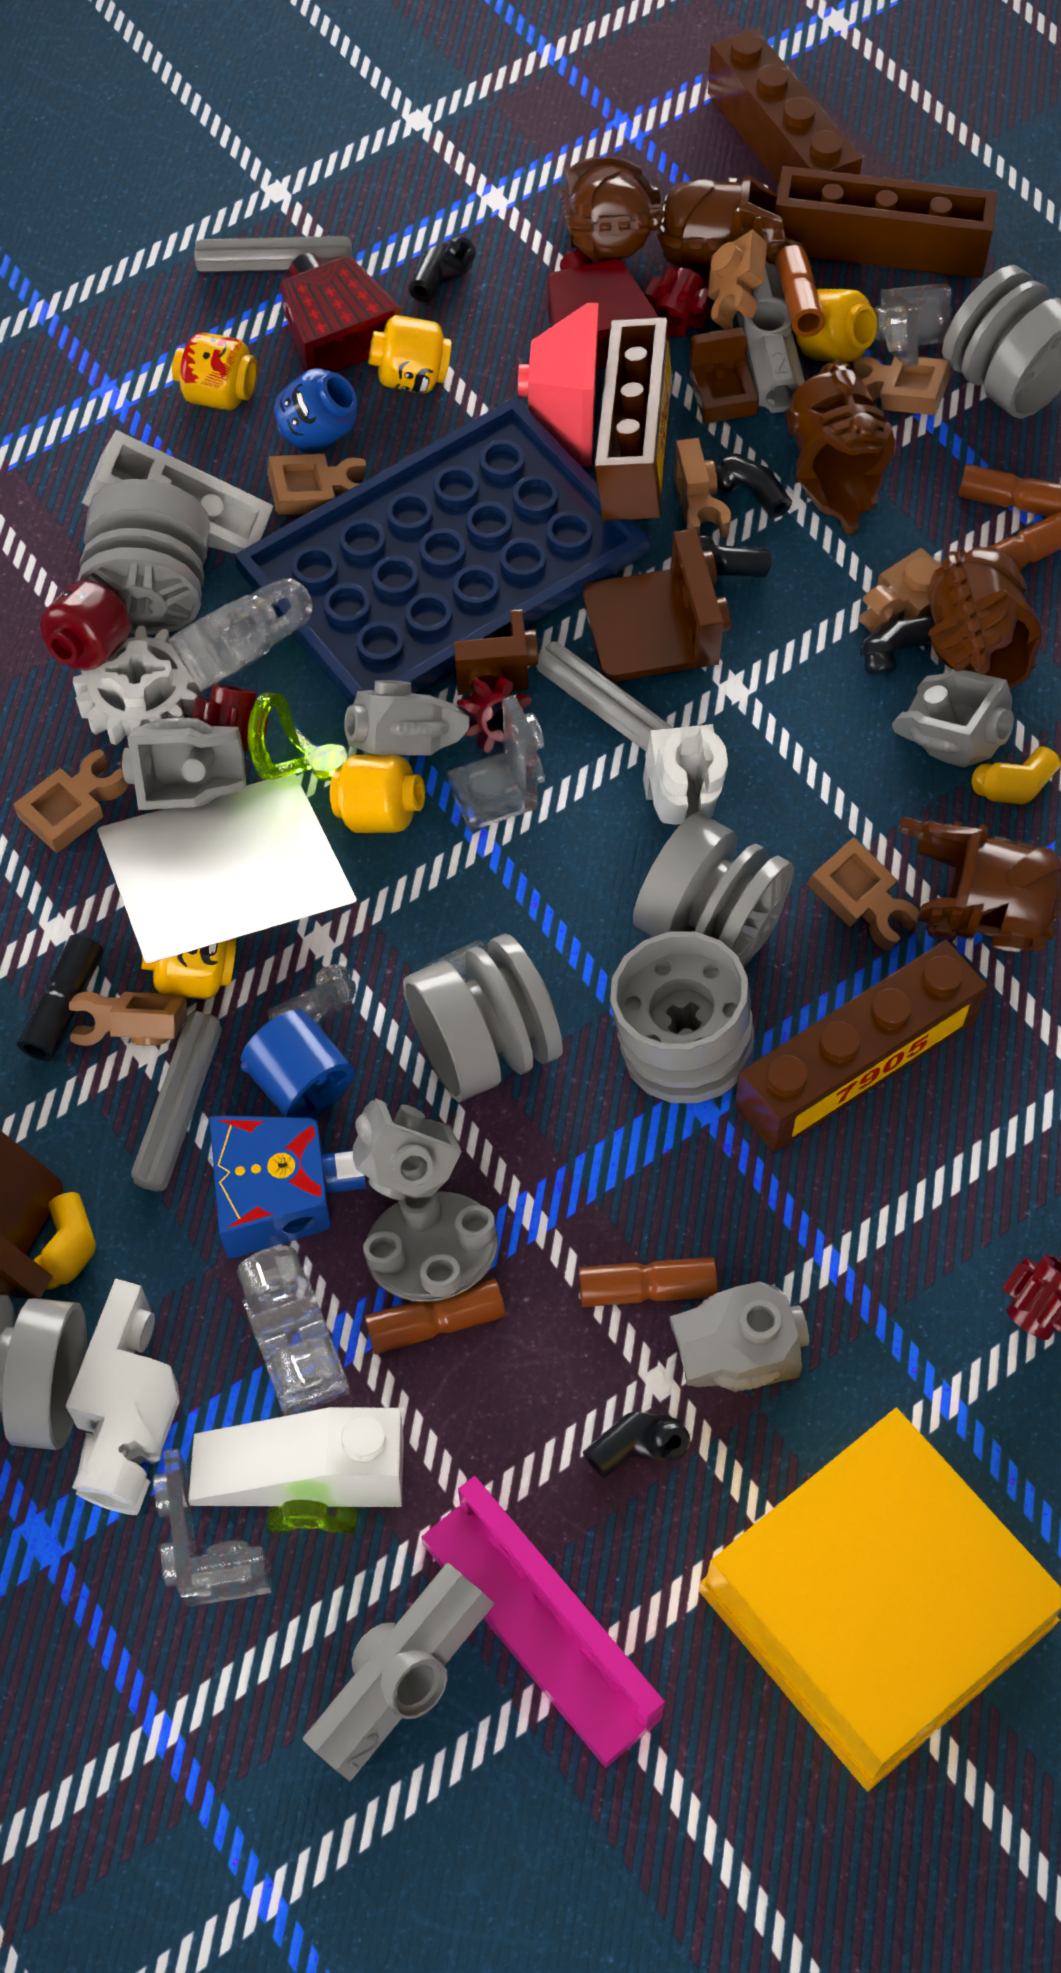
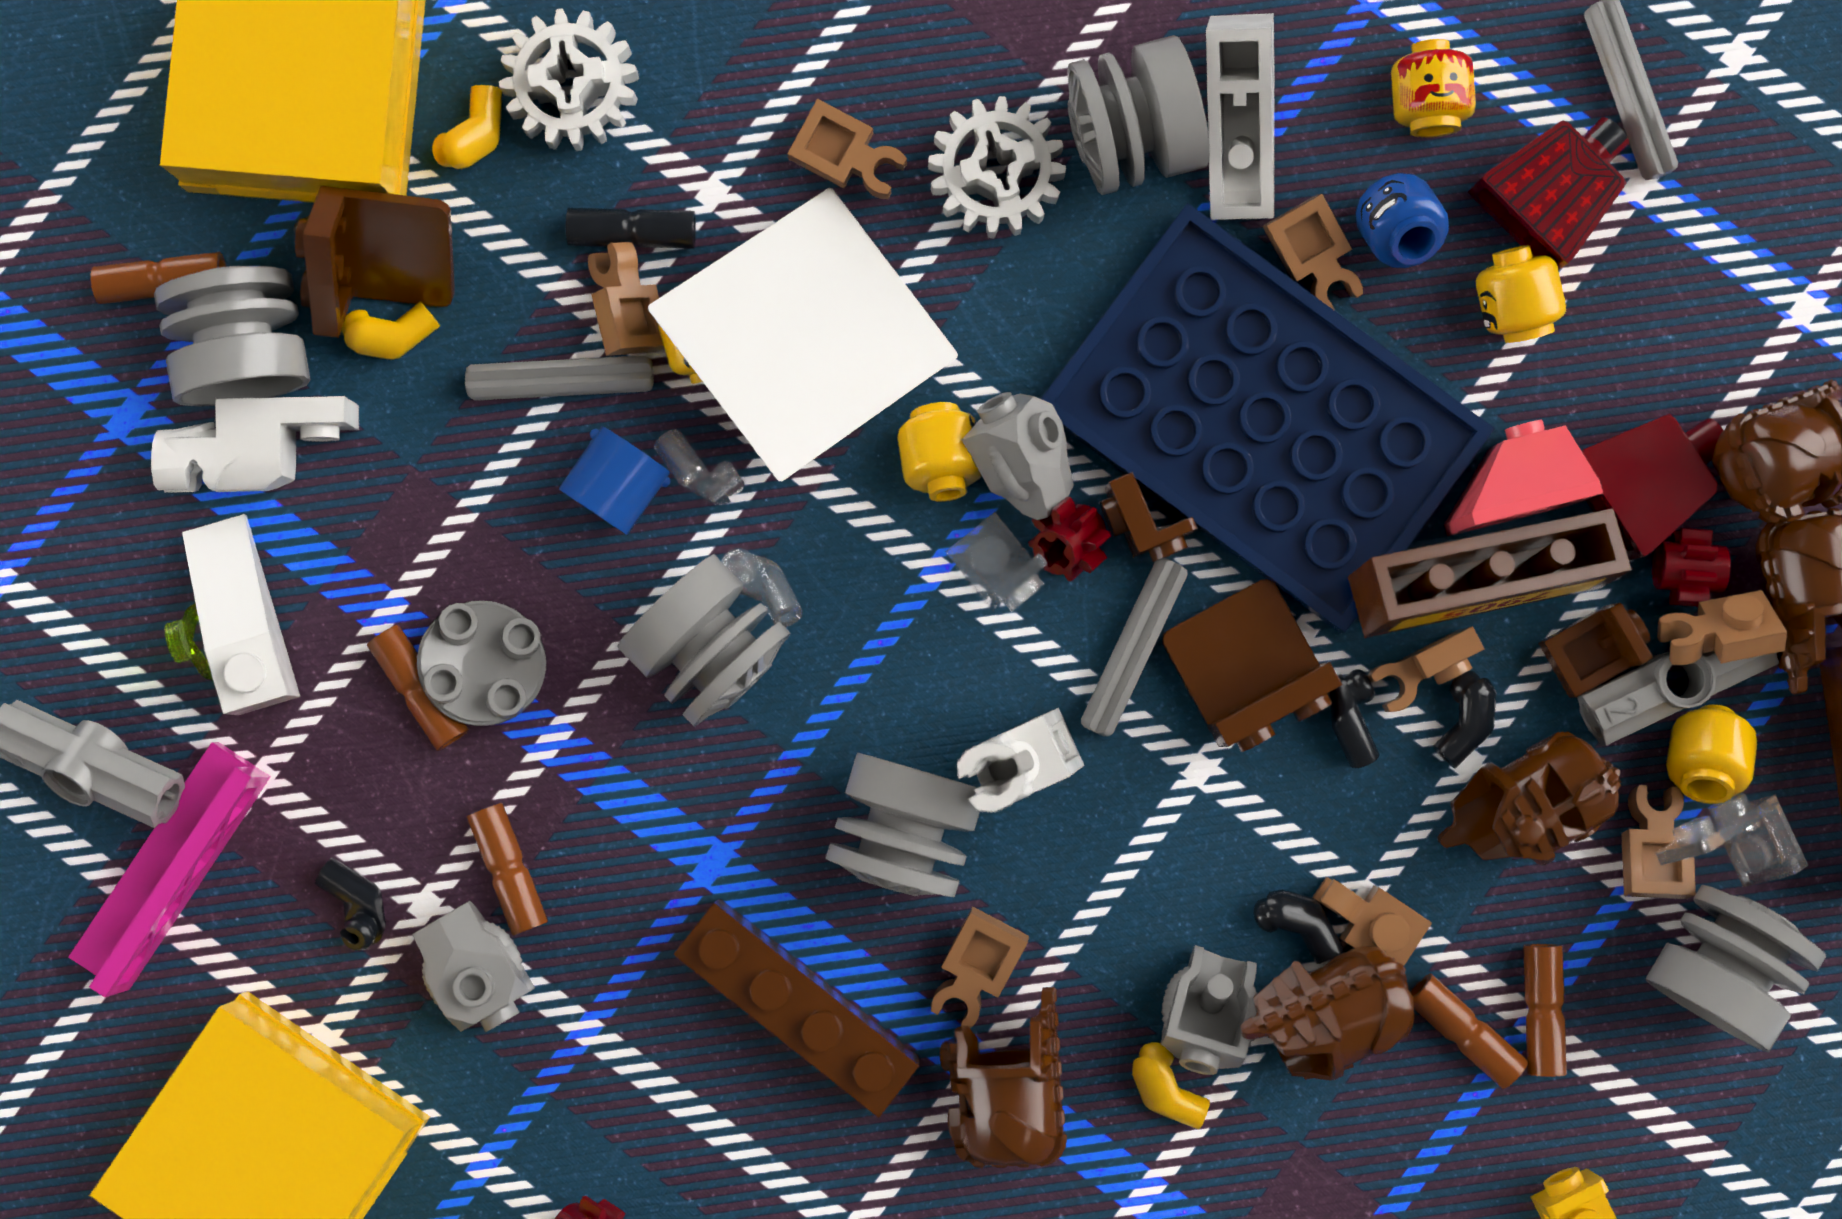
camera: 70 degrees right, 25 degrees up
(85, 625) = (1023, 92): dark red head -> none
(183, 763) = (907, 249): light grey hand -> none
(227, 1570) = (133, 587): clear bracket -> none
(229, 708) = (983, 273): dark red gear -> none
(240, 632) = (1066, 240): clear piece -> none
(274, 1180) = (498, 499): blue torso -> none
(290, 1331) = (340, 577): clear piece -> none
(321, 760) = (973, 383): clear neon green piece -> none
(404, 1154) = (549, 610): light grey hand -> none
(440, 265) = (1673, 279): black arm -> none
(683, 1016) = (745, 798): light grey wheel -> none
(799, 291) = (1719, 709): dark orange piece -> none

